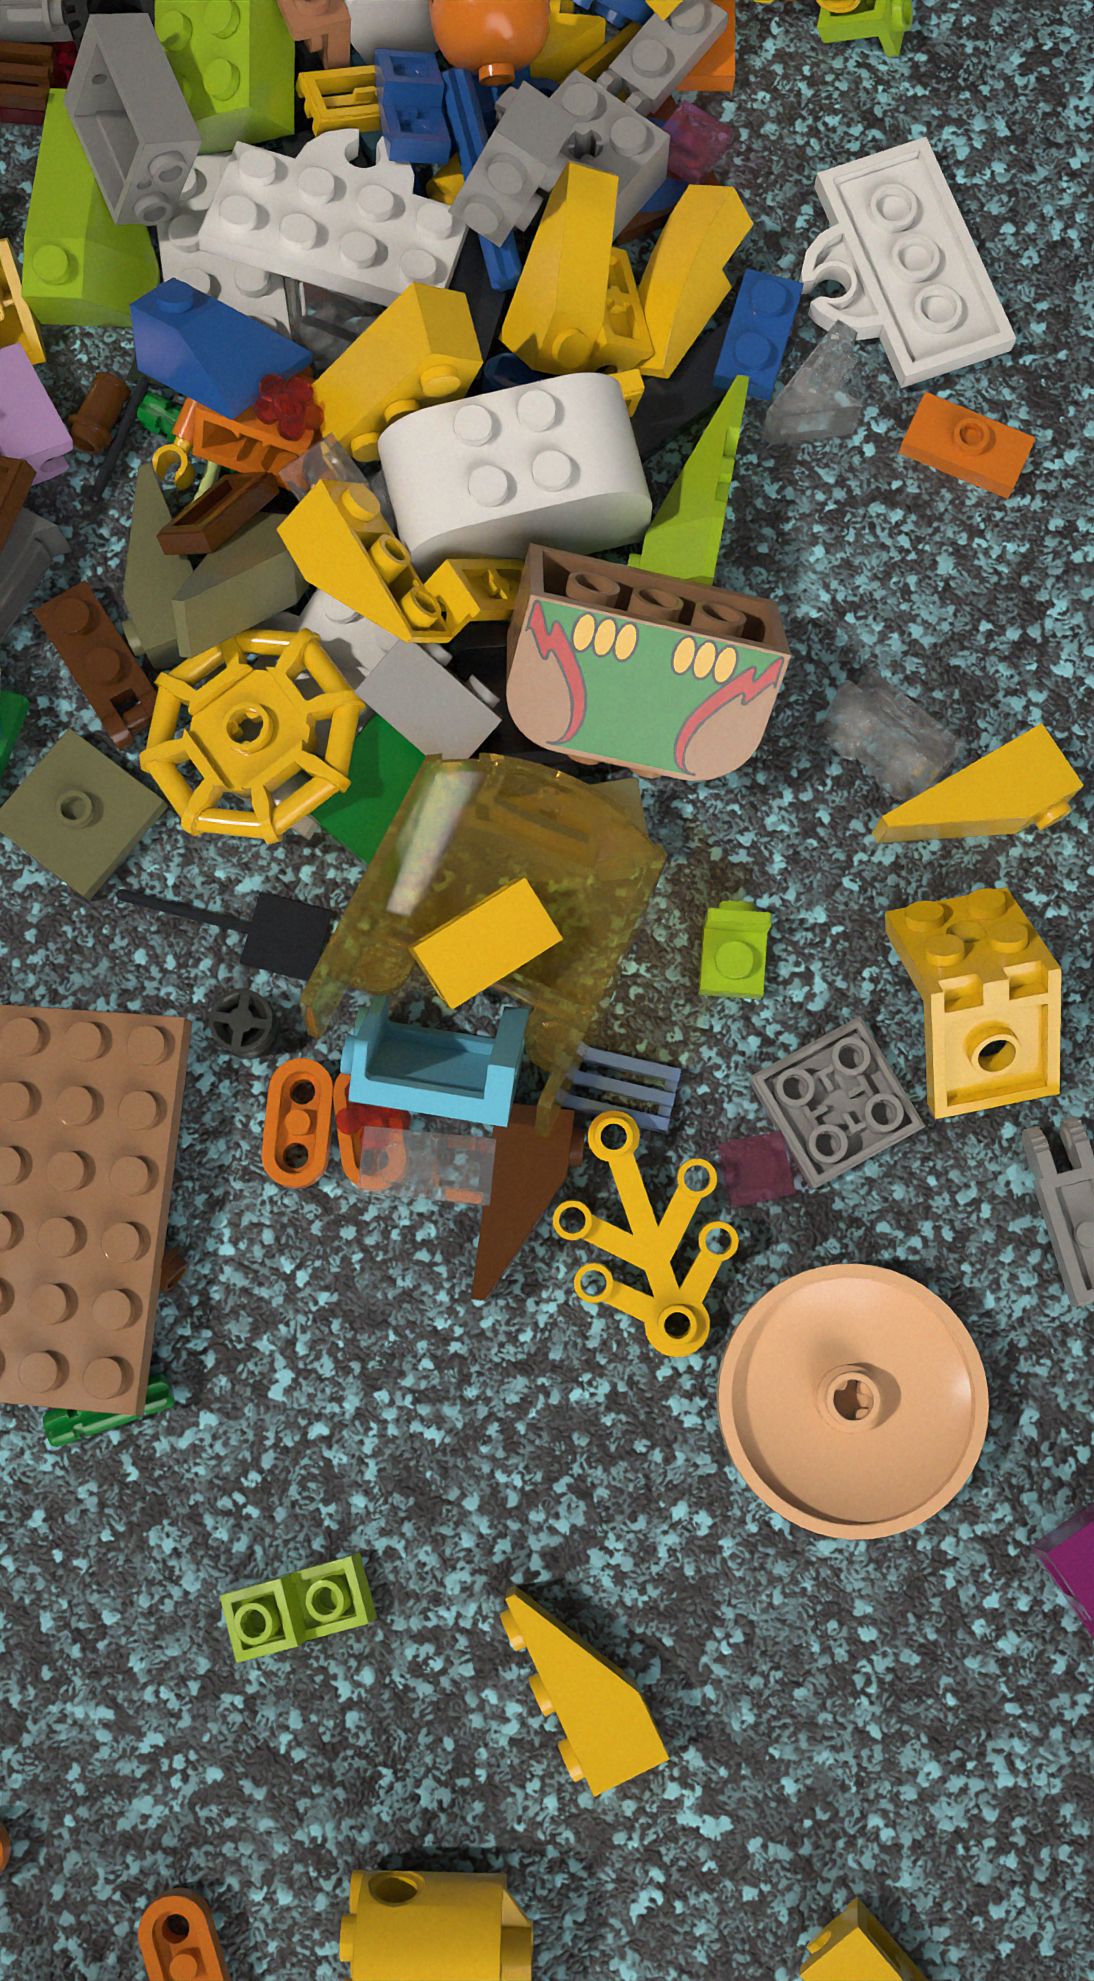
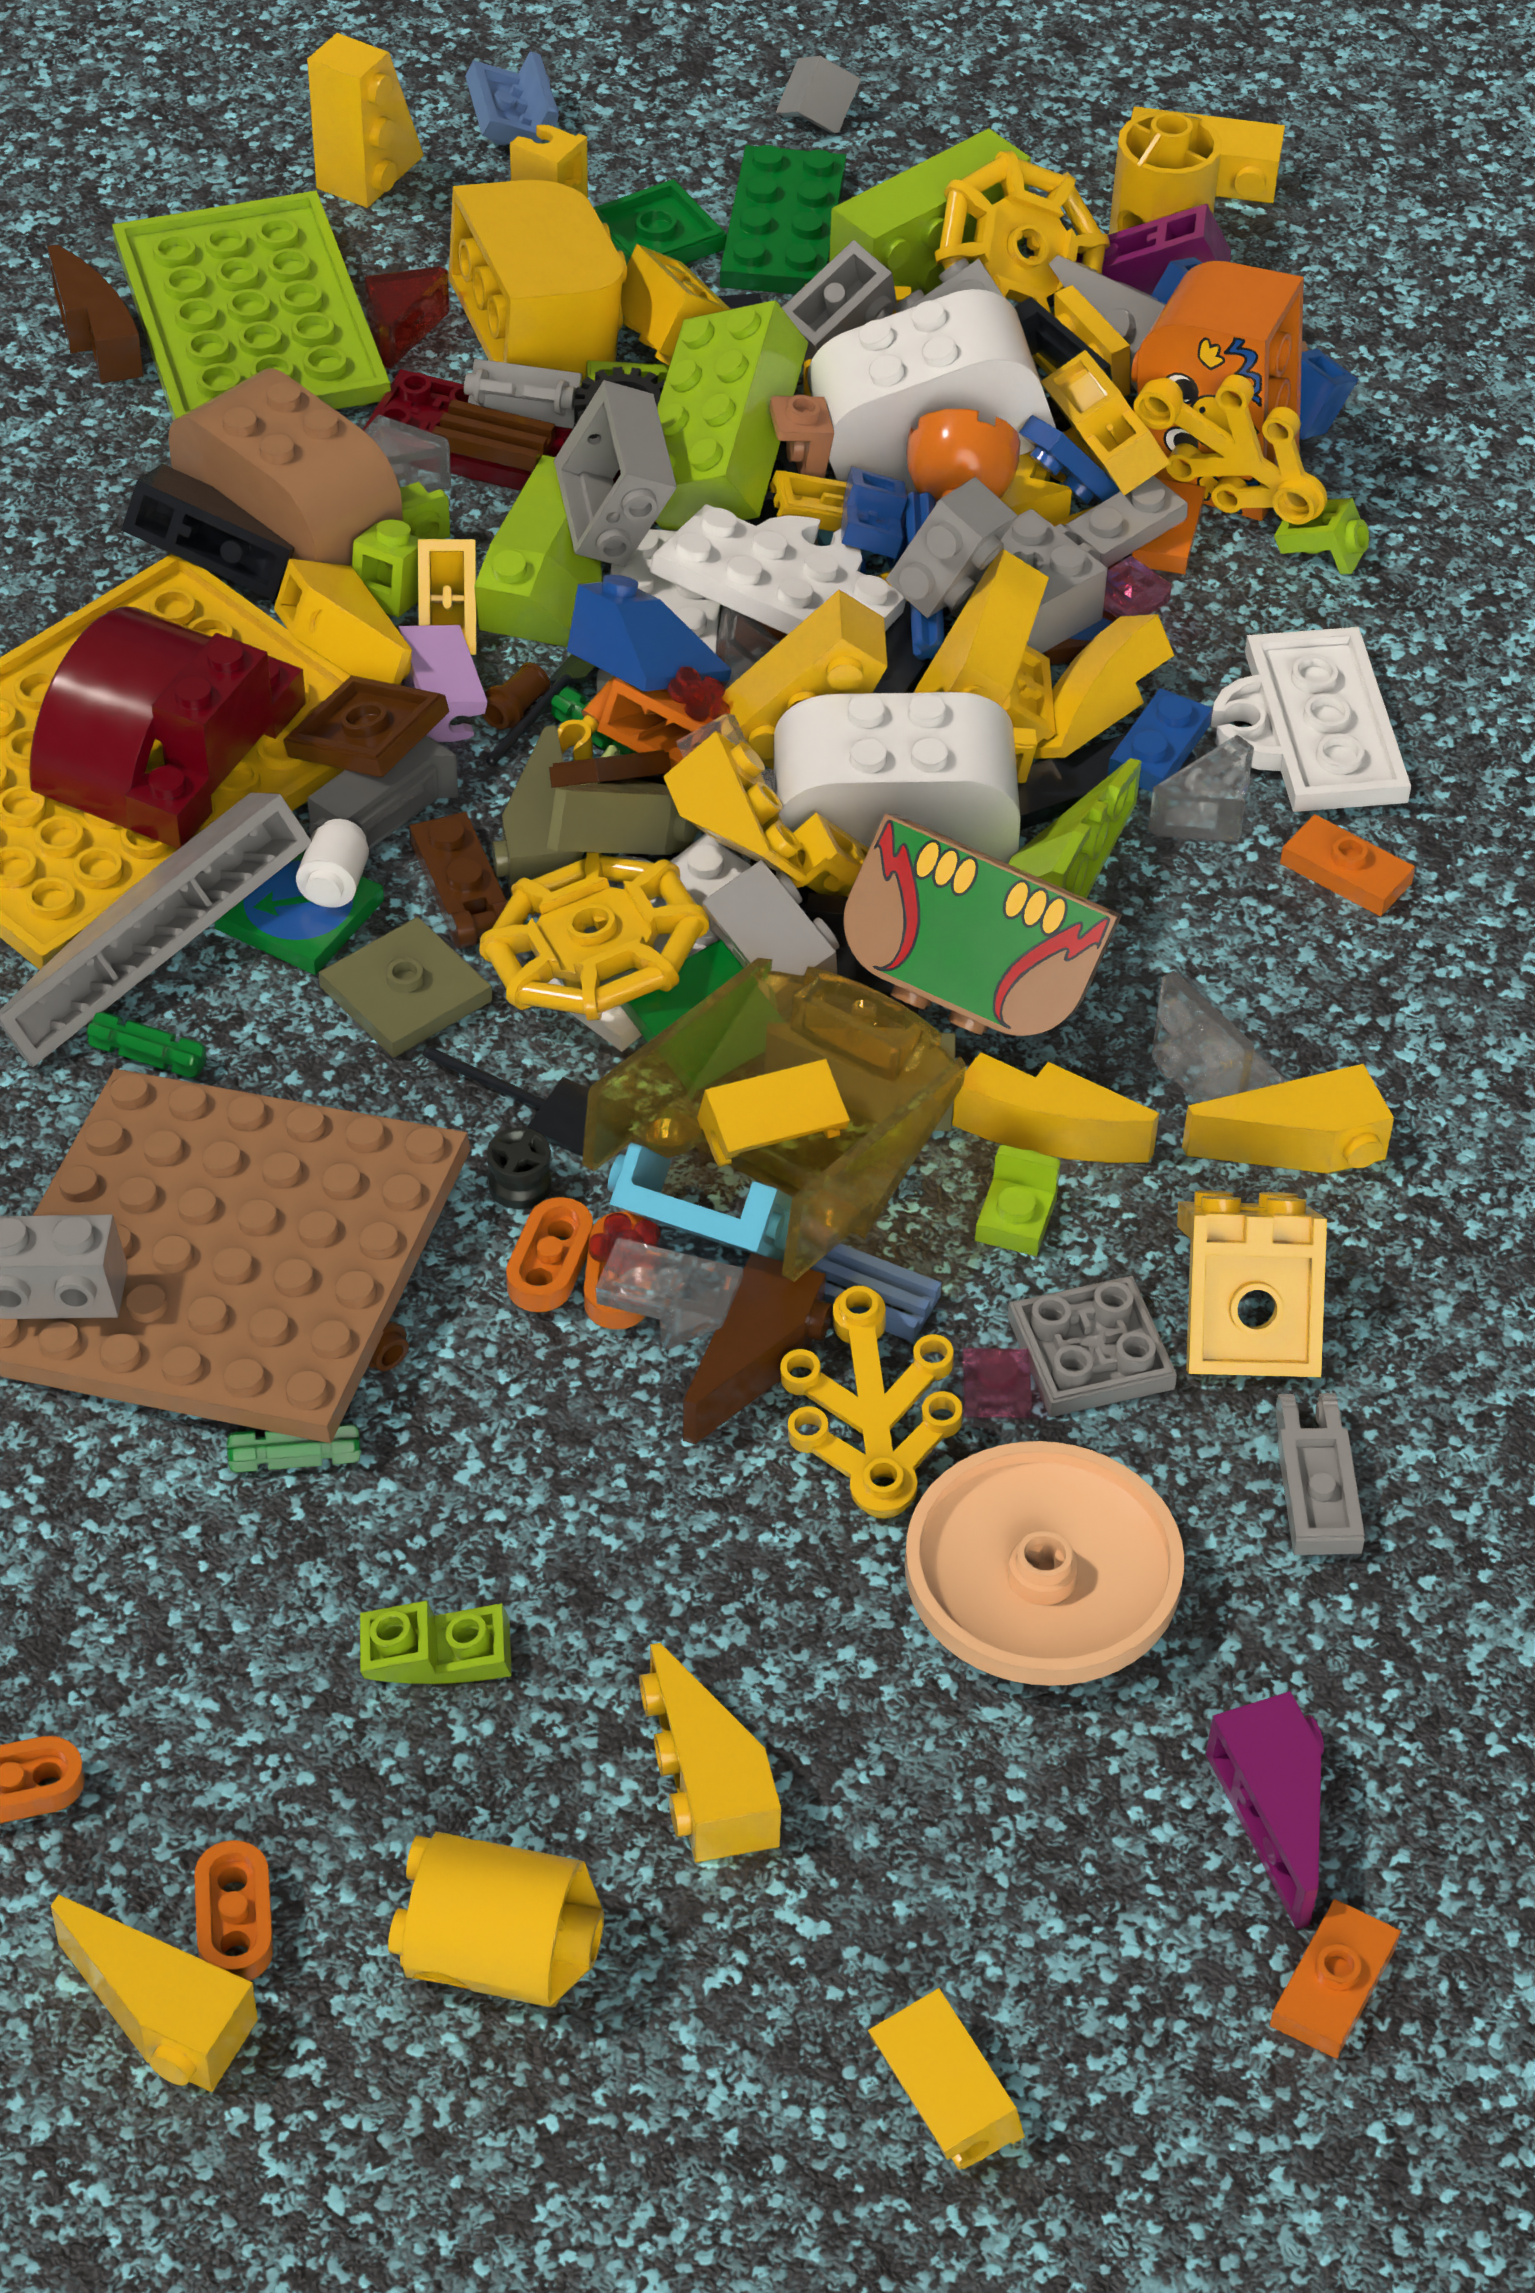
camera: 10 degrees right, 30 degrees down
(747, 840) = (1053, 1114): none -> yellow slope

